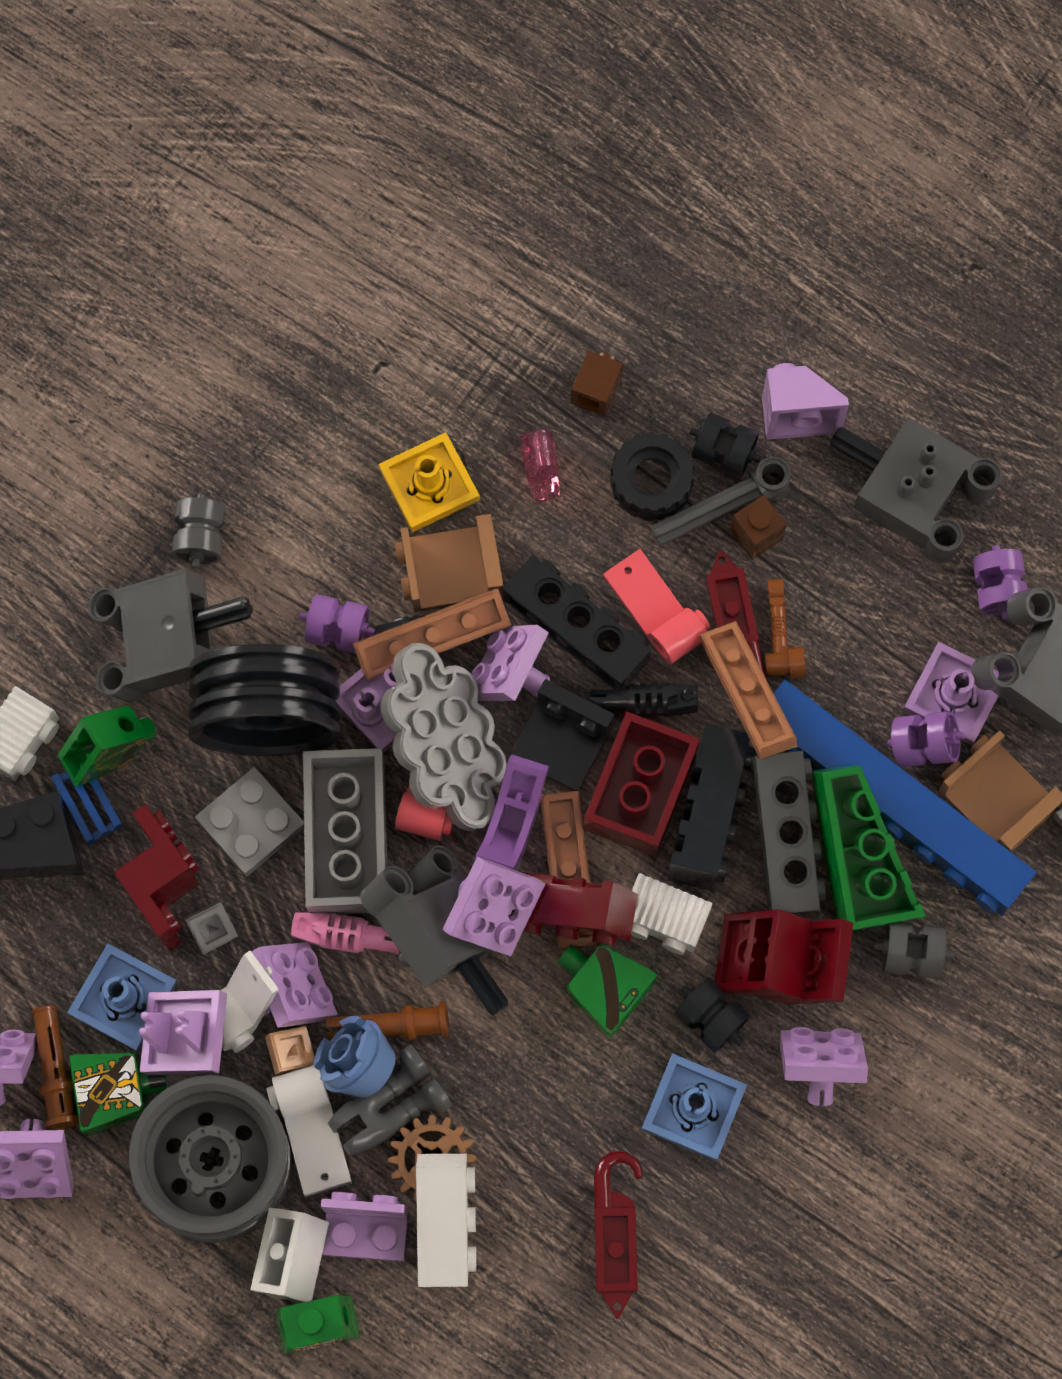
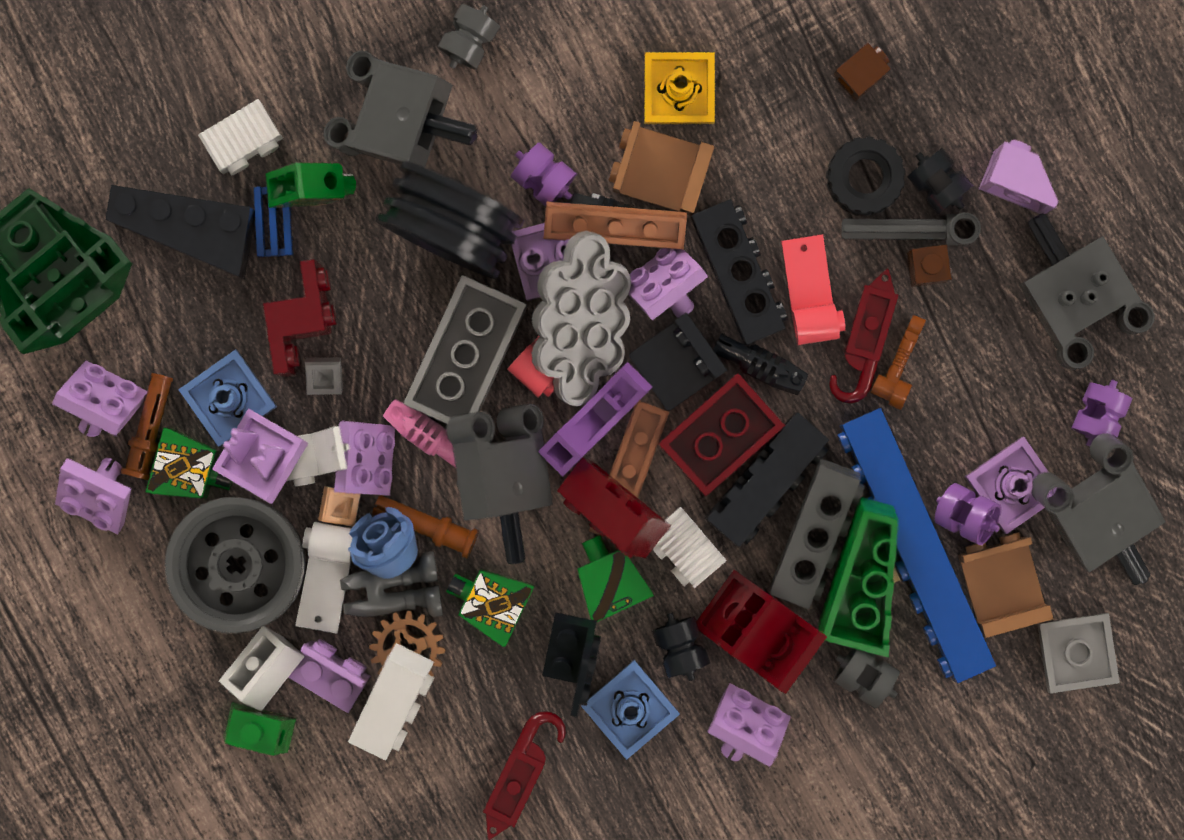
camera: 25 degrees right, 15 degrees up
(250, 821) = (395, 303): light grey plate -> none
(487, 902) = (546, 476): lavender plate -> none
(496, 1068) = (491, 602): none -> torso
(540, 464) = (779, 119): clear pink hinge -> none
(606, 1077) = (573, 655): none -> black bracket
(748, 690) = (845, 405): nougat tile -> none

